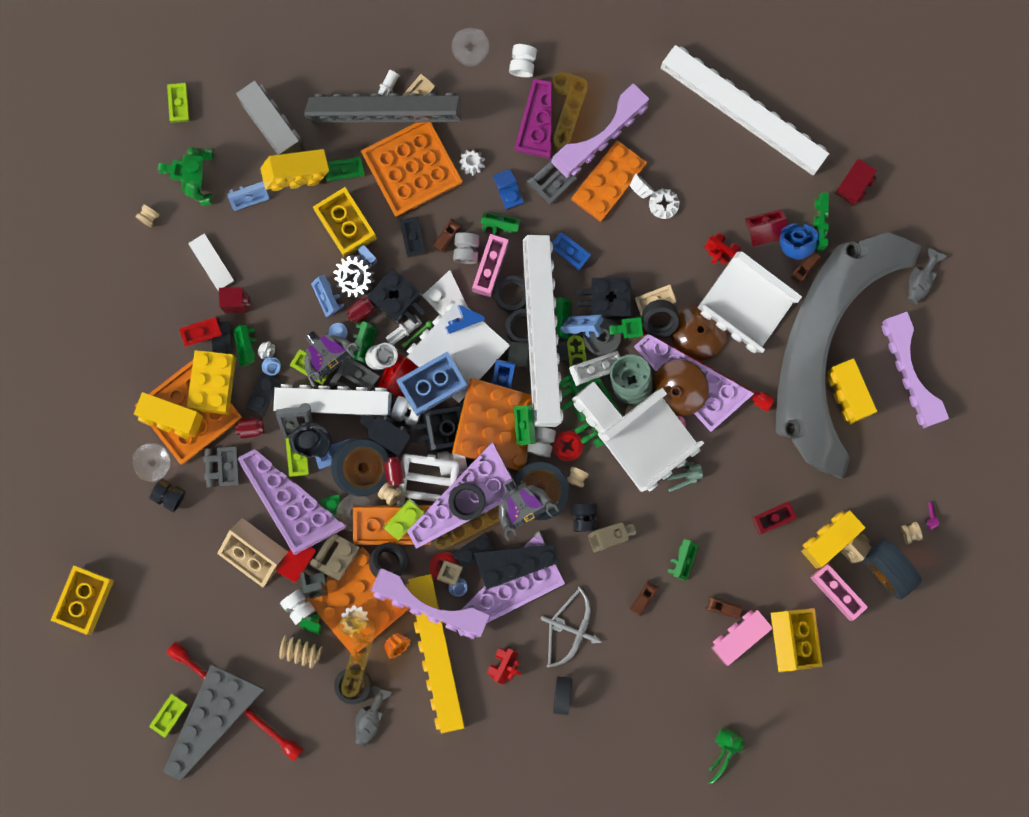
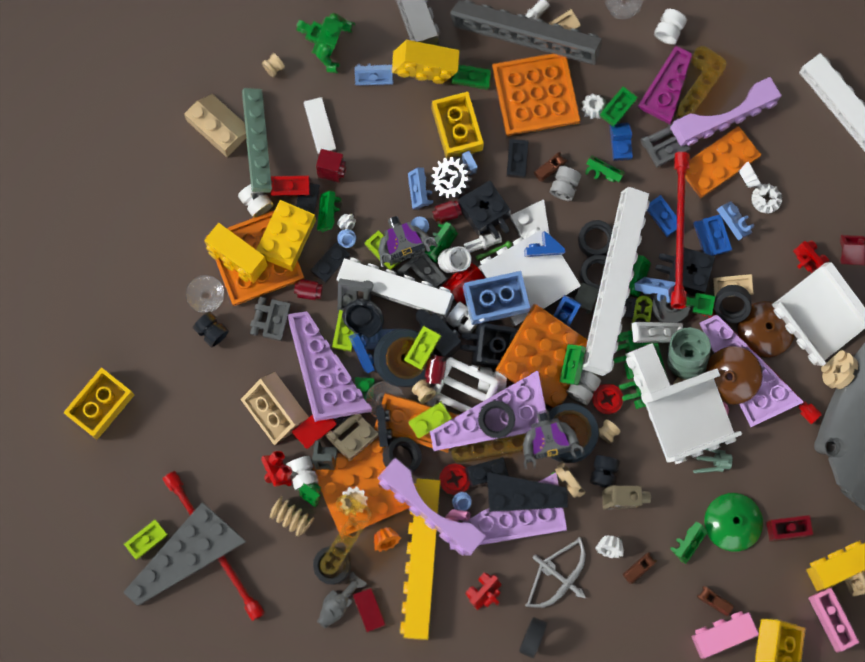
camera: 15 degrees right, 5 degrees down
(111, 290) = (217, 124): none -> tan slope
(154, 296) = (256, 140): none -> sand green plate
(175, 360) = (257, 202): none -> white wheel
(273, 612) = (276, 470): none -> red hips
(315, 467) = (359, 346): none -> blue plate
(358, 530) = (383, 417): none -> black plate
(375, 454) = (422, 348): none -> lime plate
(400, 716) = (369, 610): none -> dark red tile
(450, 573) = (458, 485): dark tan plate -> none
(457, 601) = (456, 515): none -> bright pink arm
(490, 265) = (583, 206): bright pink brick -> none
(495, 156) = (618, 106): none -> green plate
(547, 532) = (573, 485): none -> tan plate
(605, 328) = (679, 296): none -> red hose
(610, 587) = (610, 546): none -> white piece
(622, 257) = (712, 236): none -> blue plate
(639, 235) = (735, 221): none -> medium blue plate
(710, 537) = (720, 524): none -> green dish
(780, 344) = (840, 362): none -> tan plate

